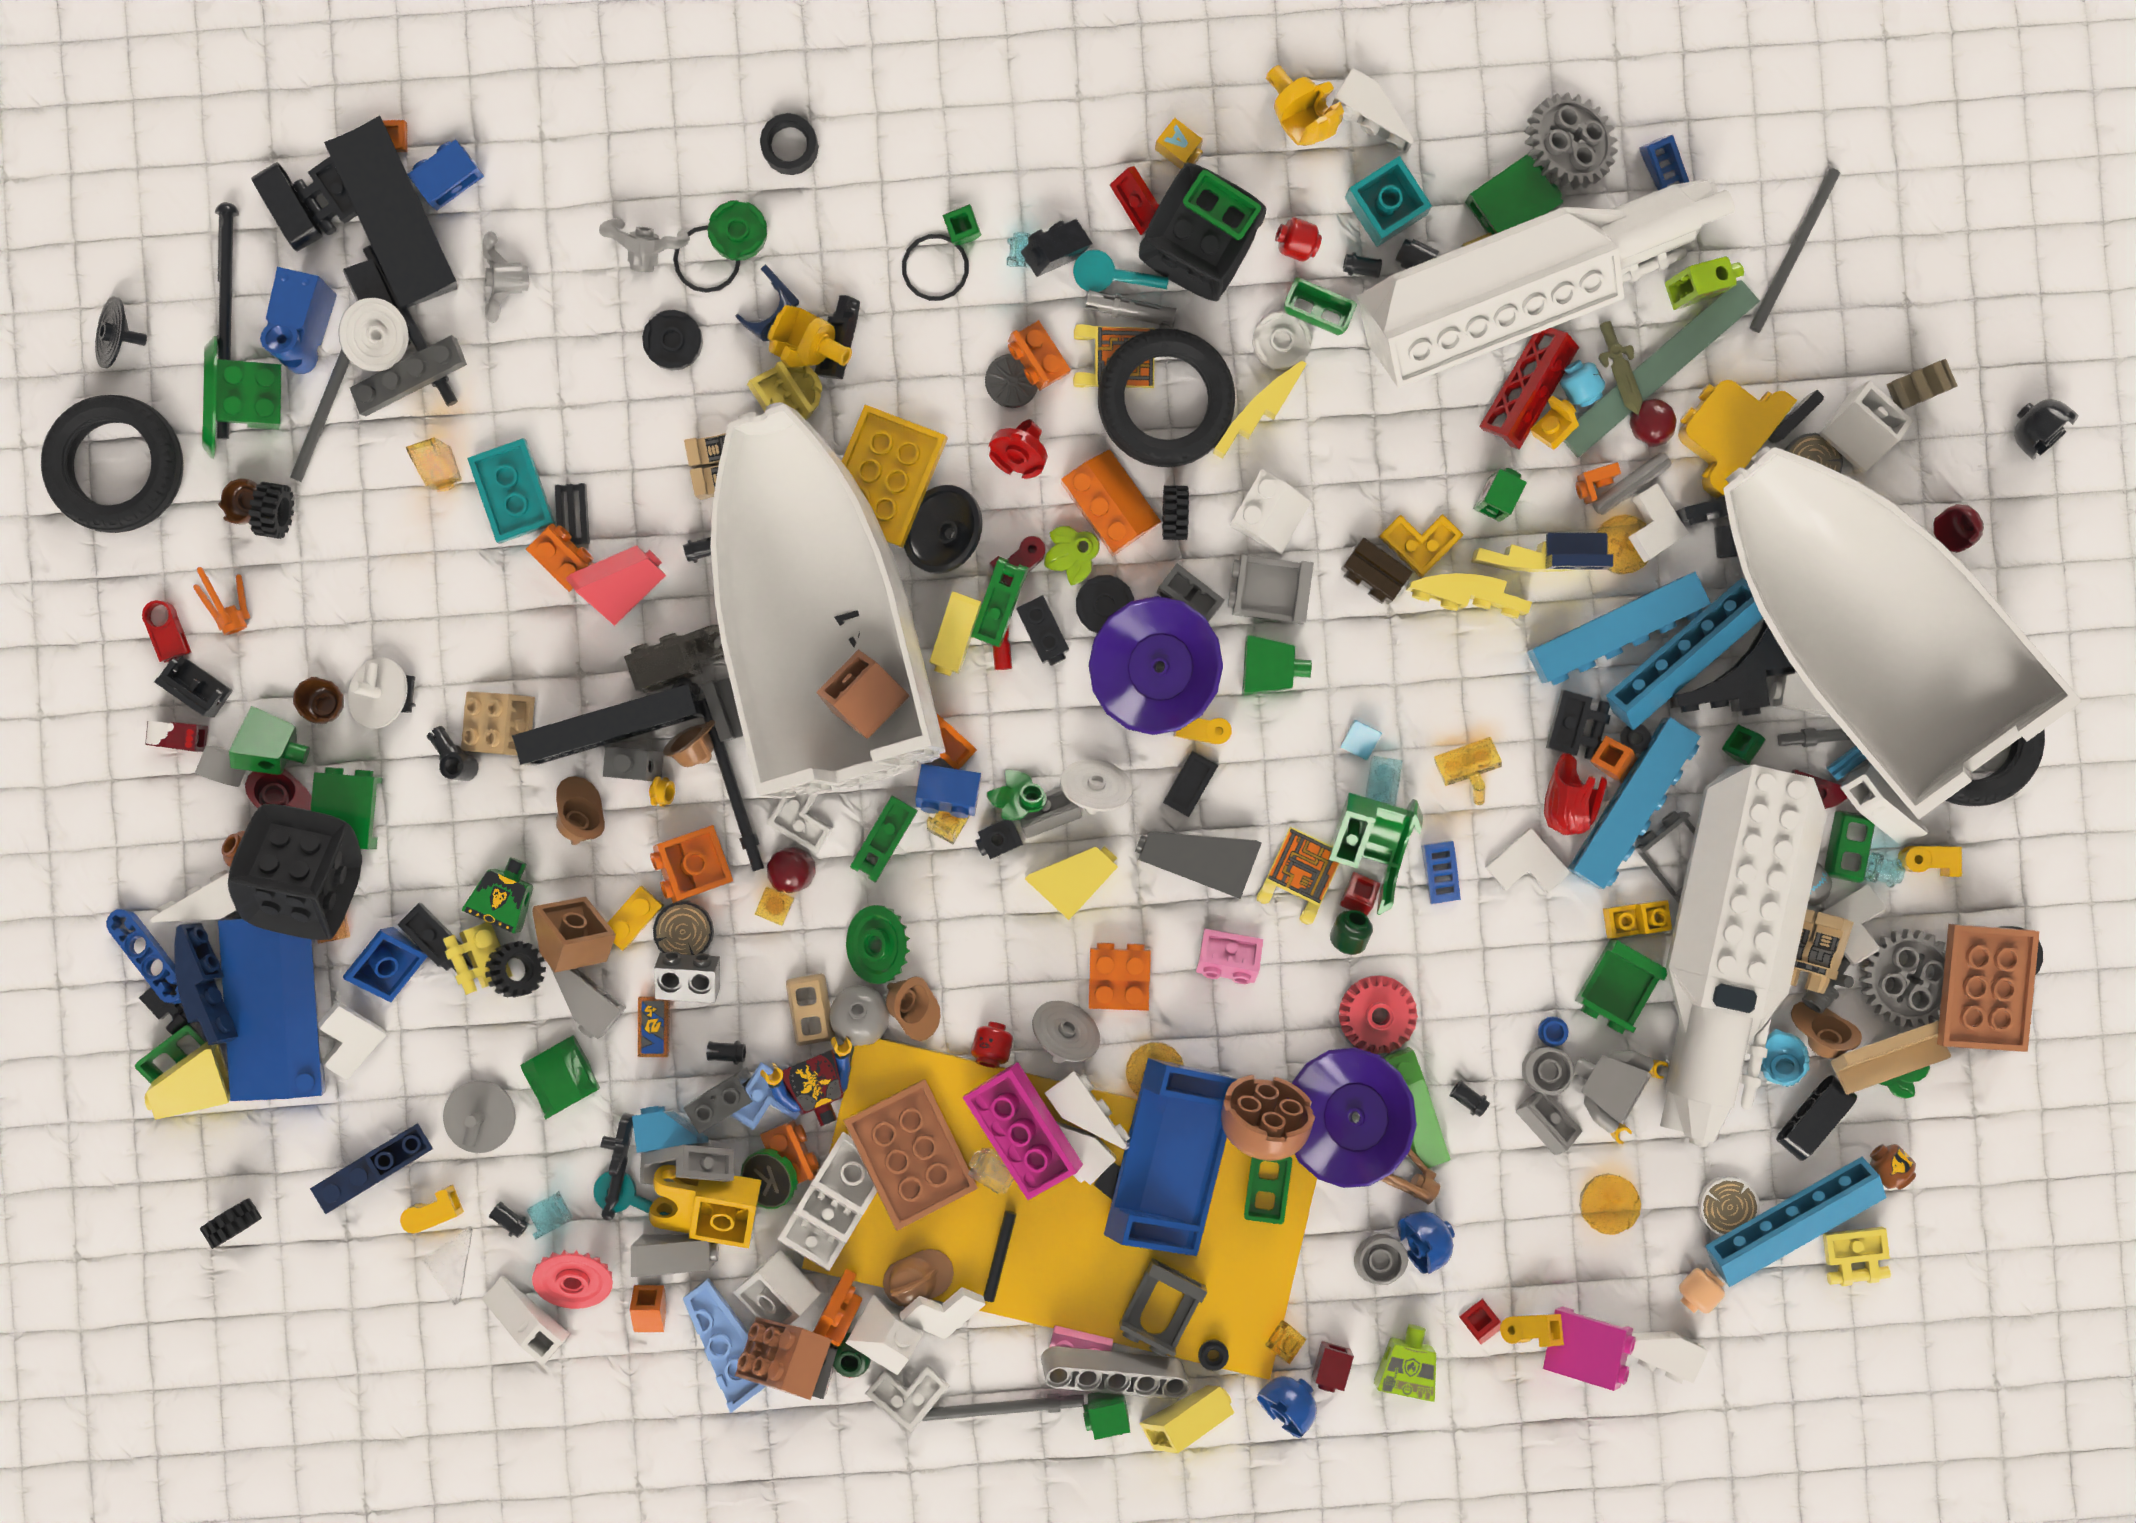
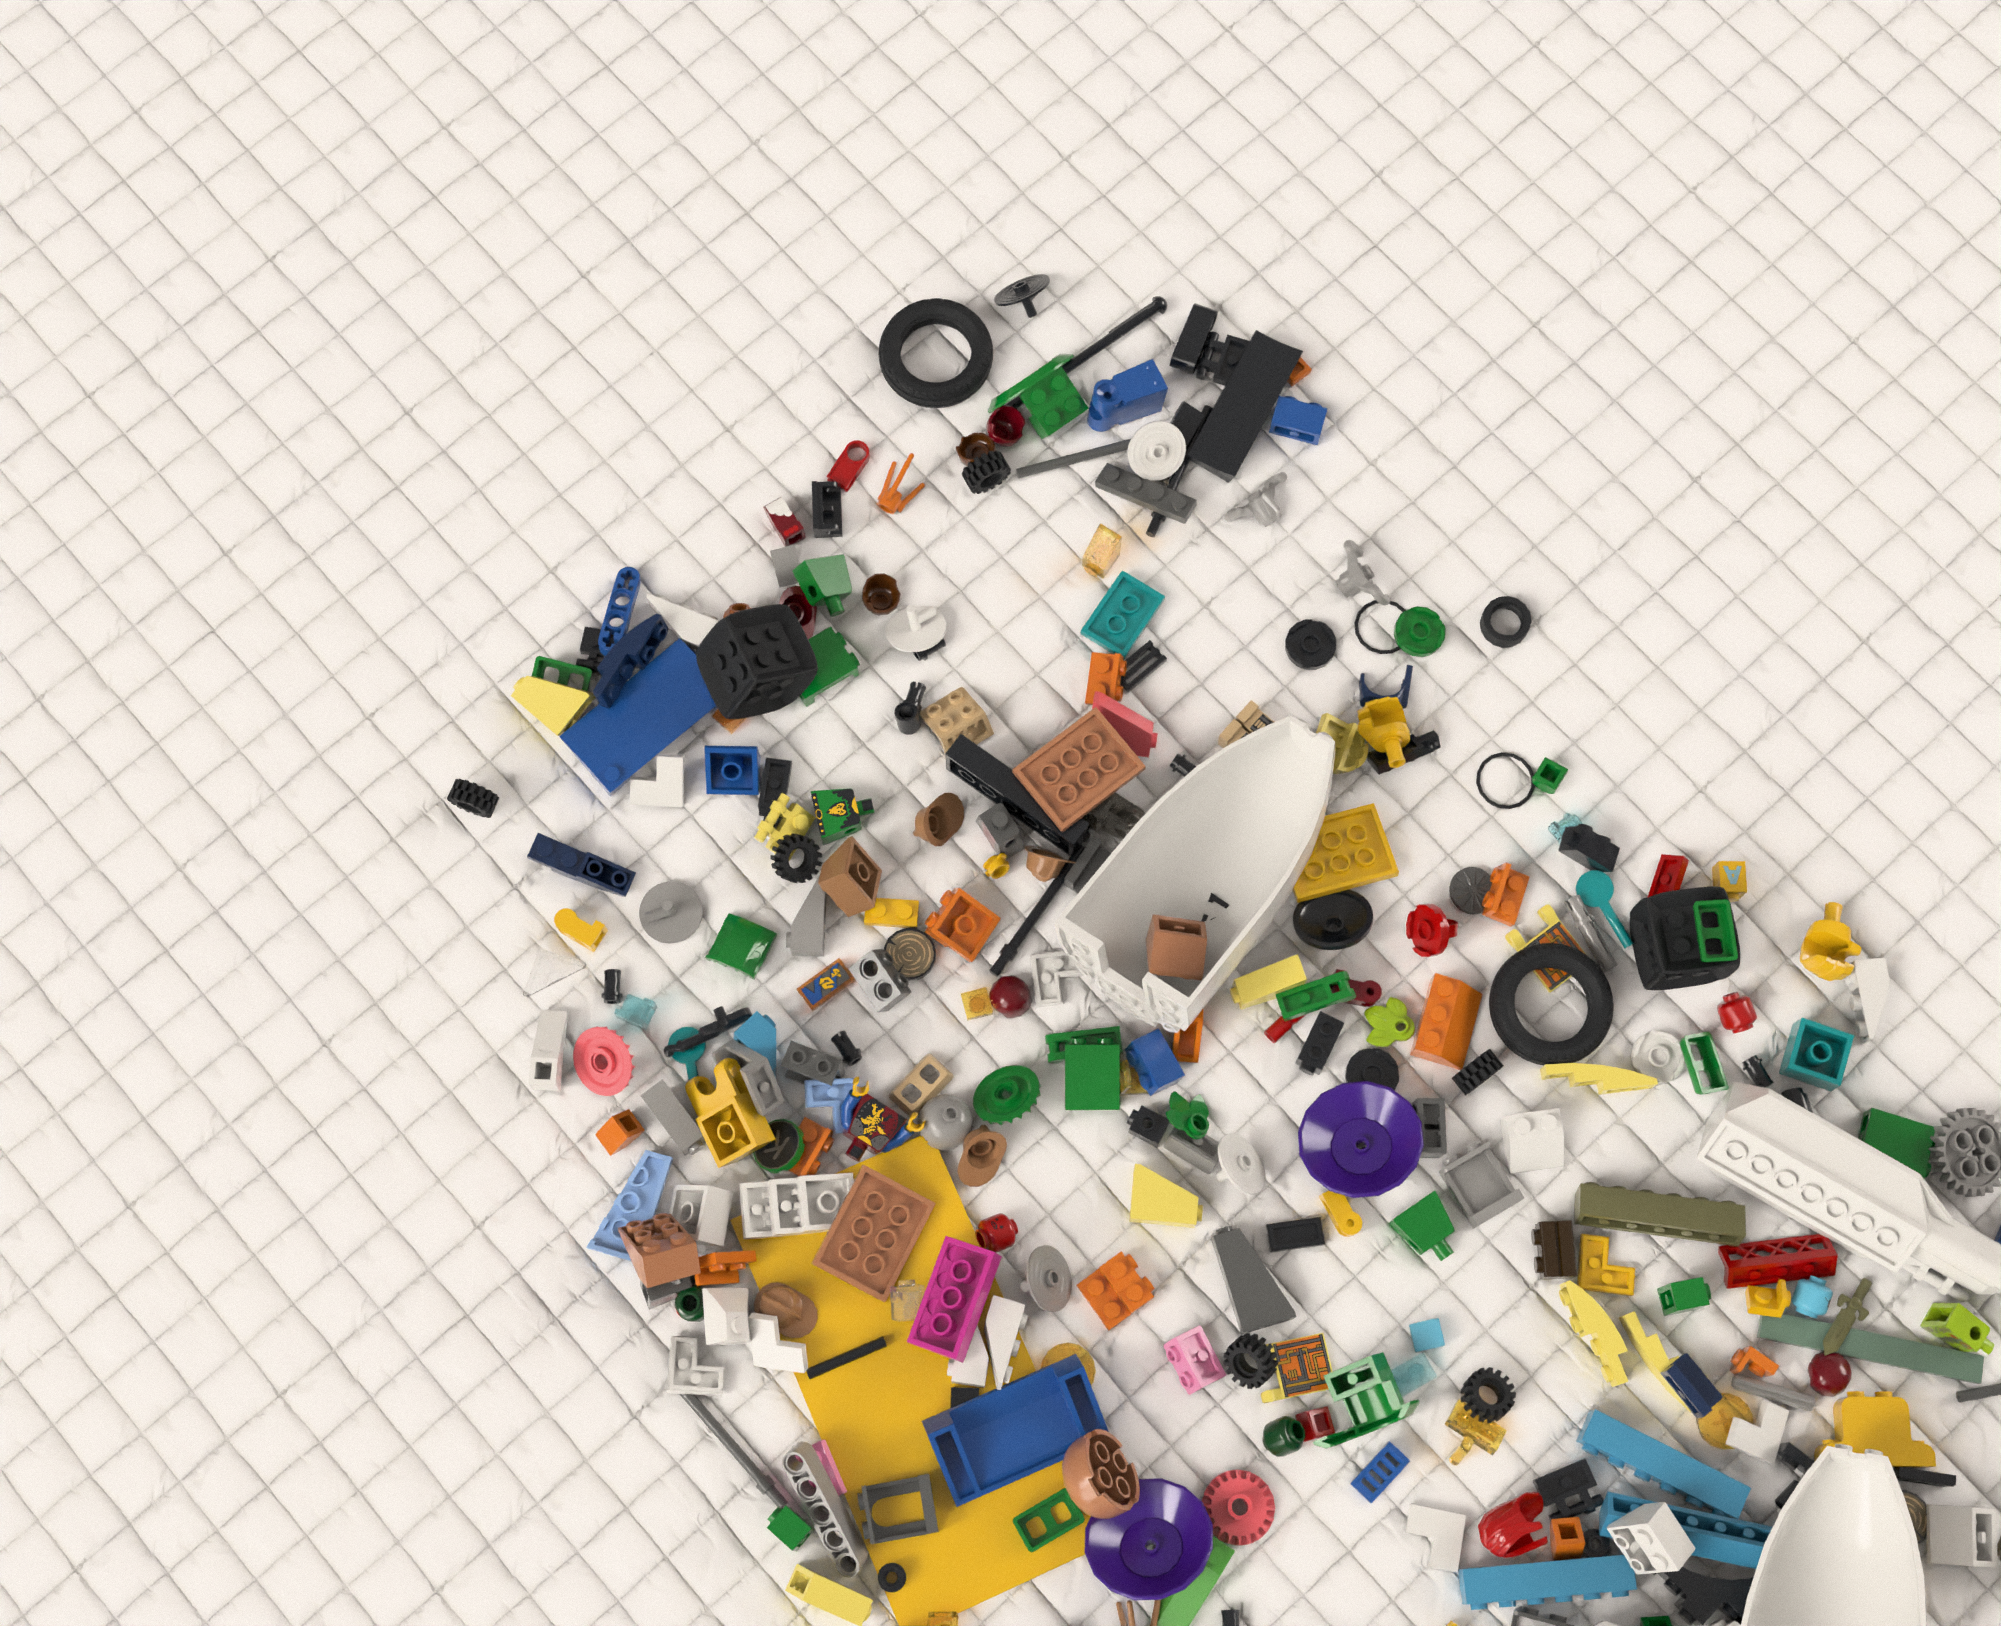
camera: 50 degrees right, 15 degrees down
(238, 455) = (1005, 425): none -> dark red hair
(629, 655) = (1078, 769): none -> nougat plate
(917, 855) = (1092, 1074): none -> green panel
(1255, 913) = (1259, 1352): none -> black tyre
(1415, 455) = (1659, 1214): none -> olive brick
(1454, 713) = (1478, 1405): none -> black tyre
(1676, 694) = (1652, 1539): none -> white slope

